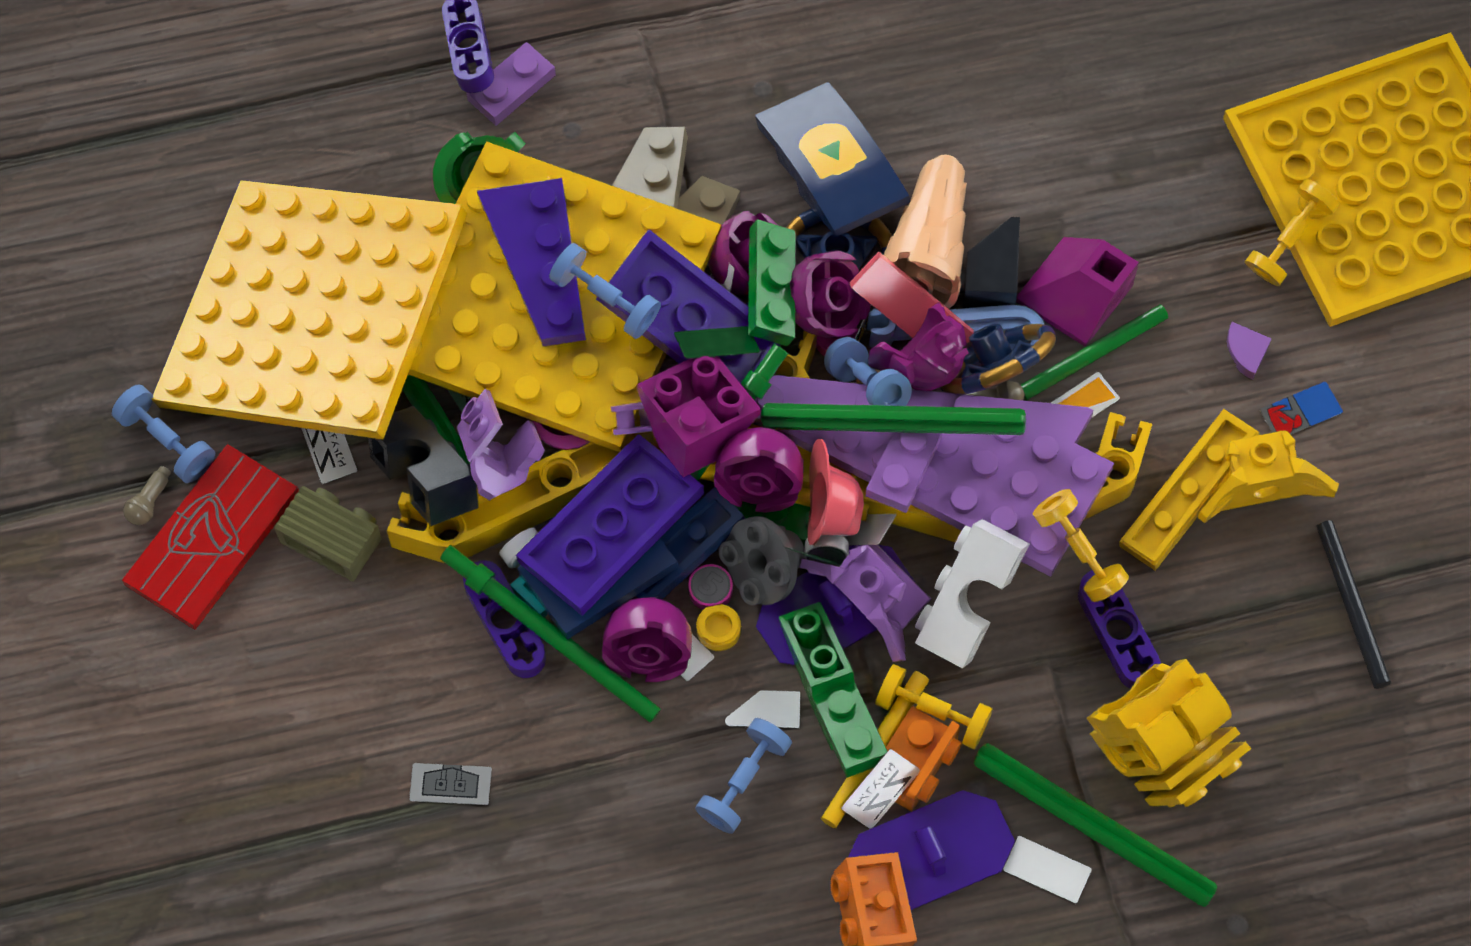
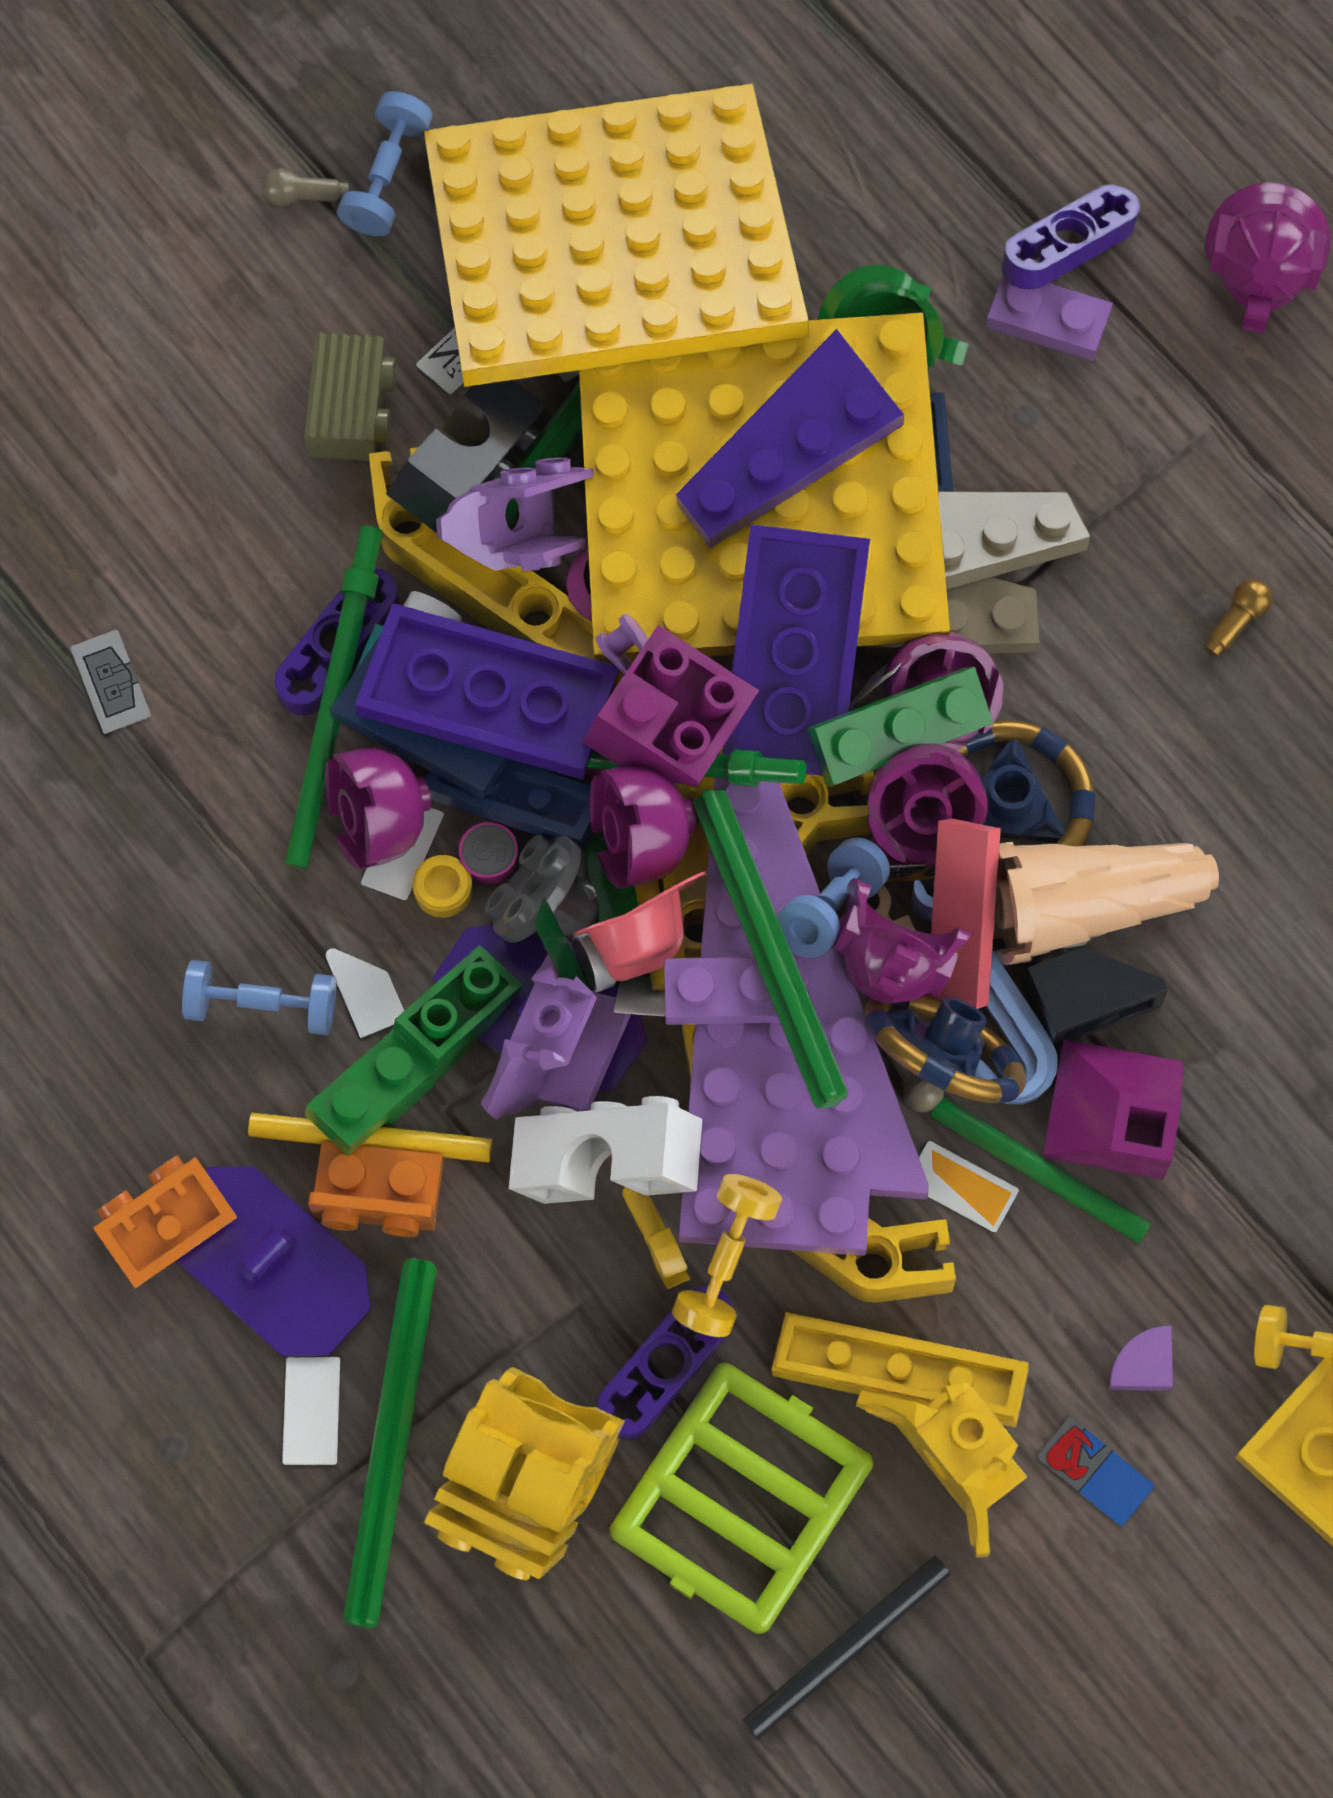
camera: 65 degrees right, 5 degrees up
(210, 536) = (287, 278): red tile -> none
(570, 264) = (765, 469): medium blue wheel -> none
(716, 342) = (769, 693): dark green sticker -> none
(775, 59) = (1250, 601): none -> pearl gold piece
(832, 159) = (1136, 729): dark blue slope -> none
(880, 789) = (311, 1162): white sticker -> none
(931, 705) = (452, 1119): yellow wheel -> none
(1050, 594) = (659, 1239): none -> yellow bar
(1259, 578) = (789, 1564): none -> lime bar

